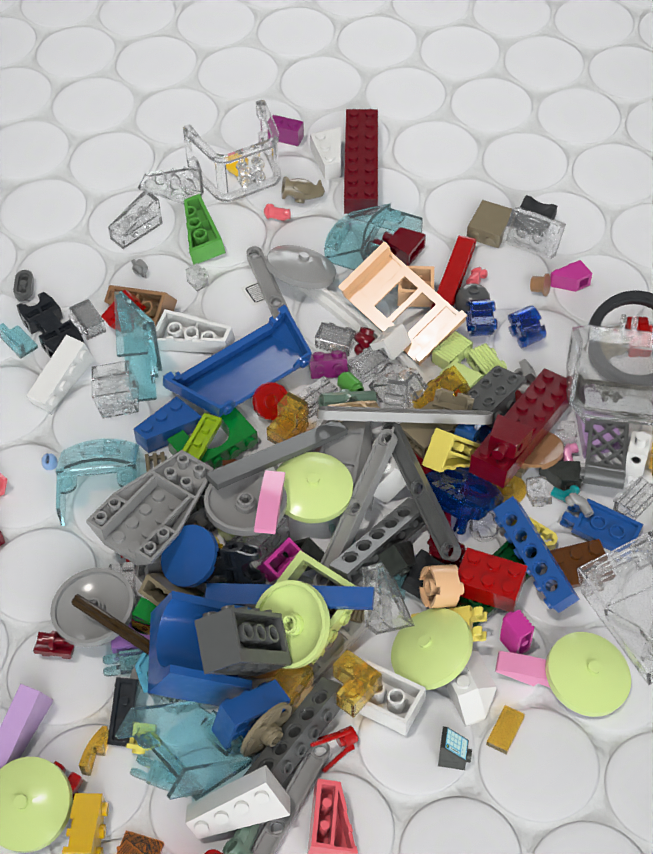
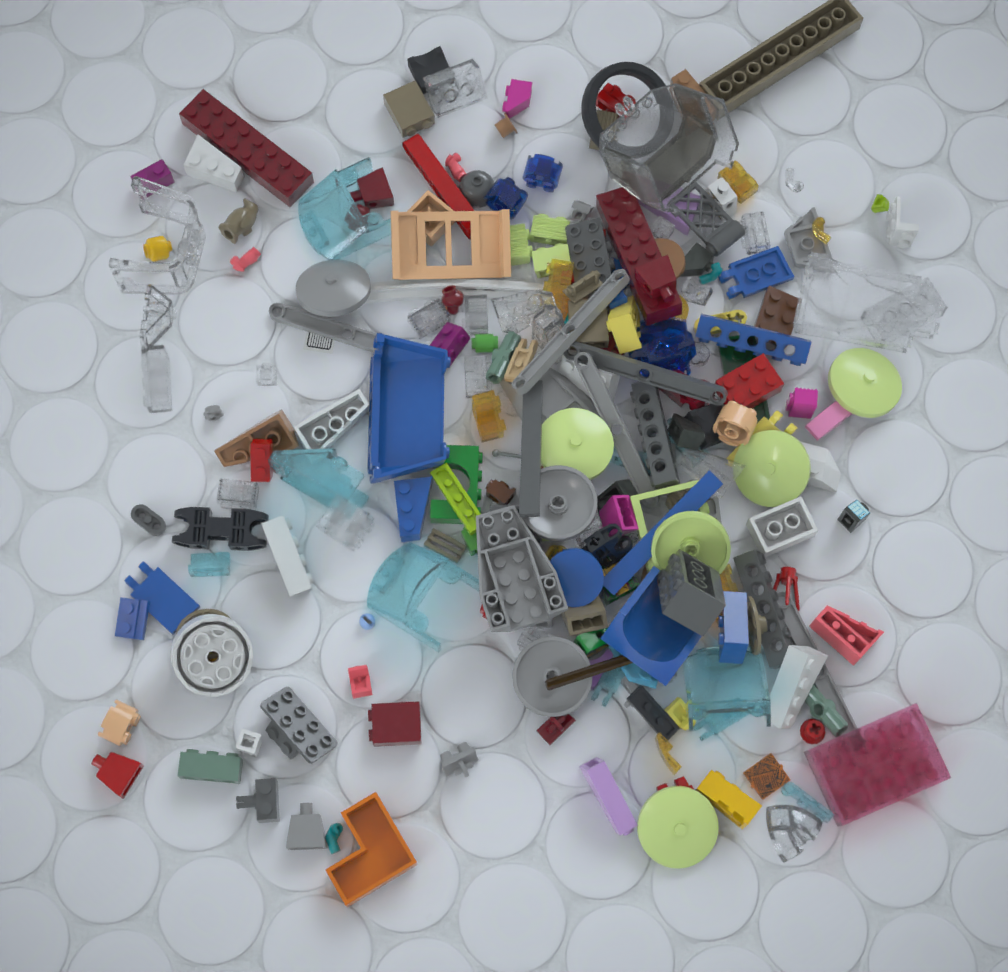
camera: 55 degrees left, 20 degrees up
(202, 233) = (220, 335): bright green wedge -> none
(266, 400) = (455, 414): red tile -> none
(269, 502) = (583, 487): bright pink slope -> none
(359, 682) = (769, 535): clear yellow brick -> none
(393, 340) = (474, 280): white panel -> none
(505, 729) = (860, 468): clear yellow tile -> none
(568, 452) = (675, 237): bright pink arm -> none
(581, 502) = (731, 272): light grey arm -> none

